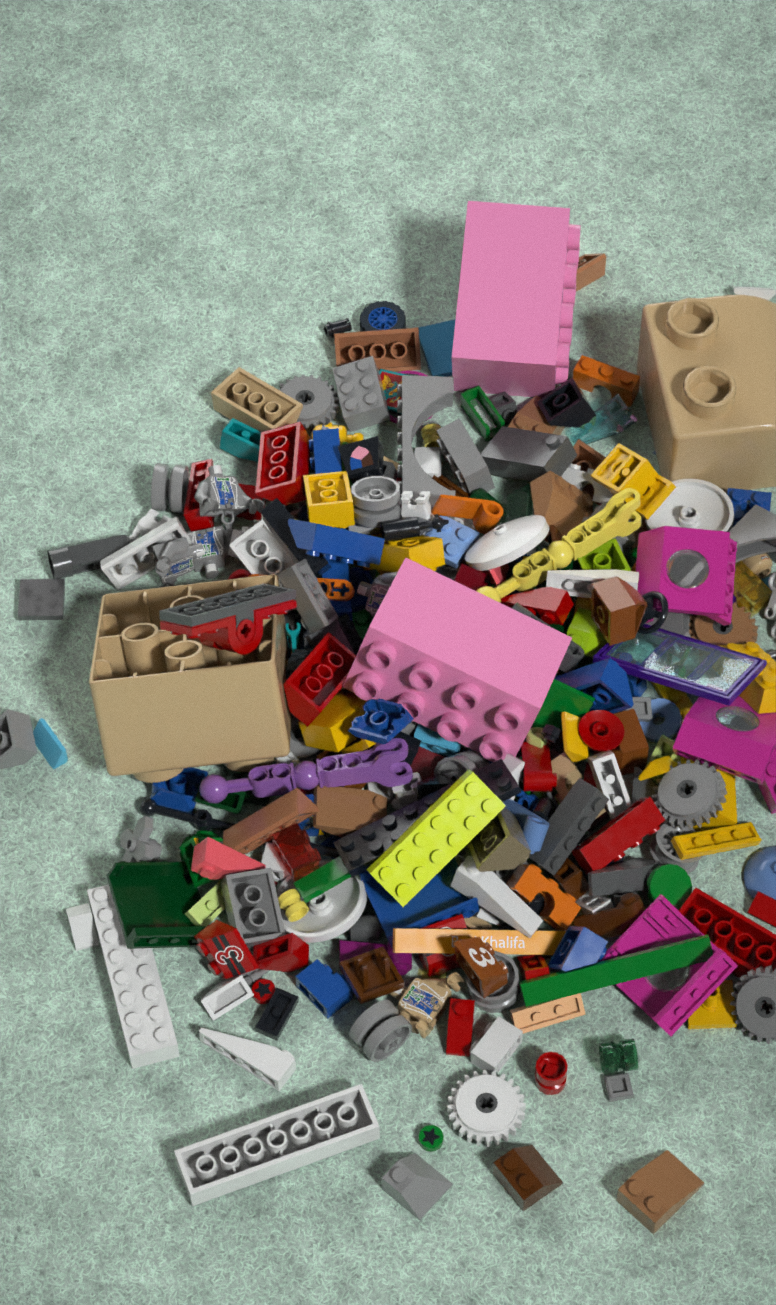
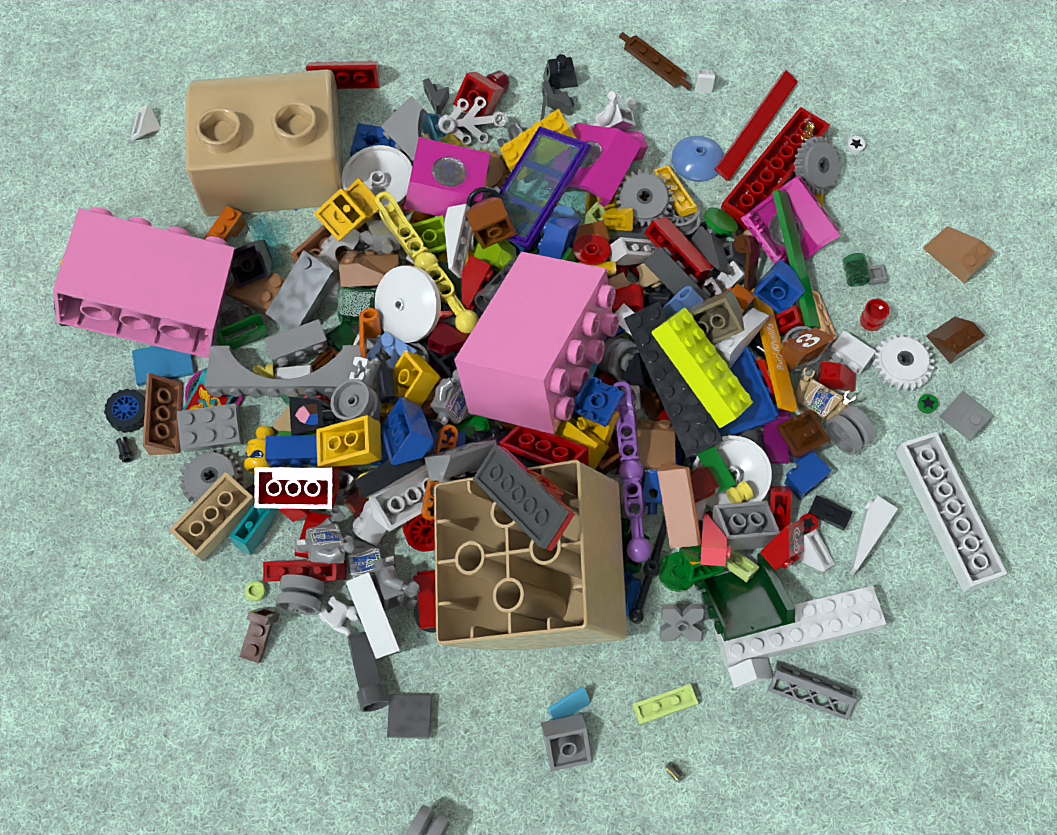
camera: 90 degrees left, 10 degrees up
(47, 837) = (665, 704): none -> yellowish green plate
(62, 987) = (814, 683): none -> fence
(139, 458) = (258, 633): none -> bracket
(180, 456) = (255, 591): none -> yellowish green tile

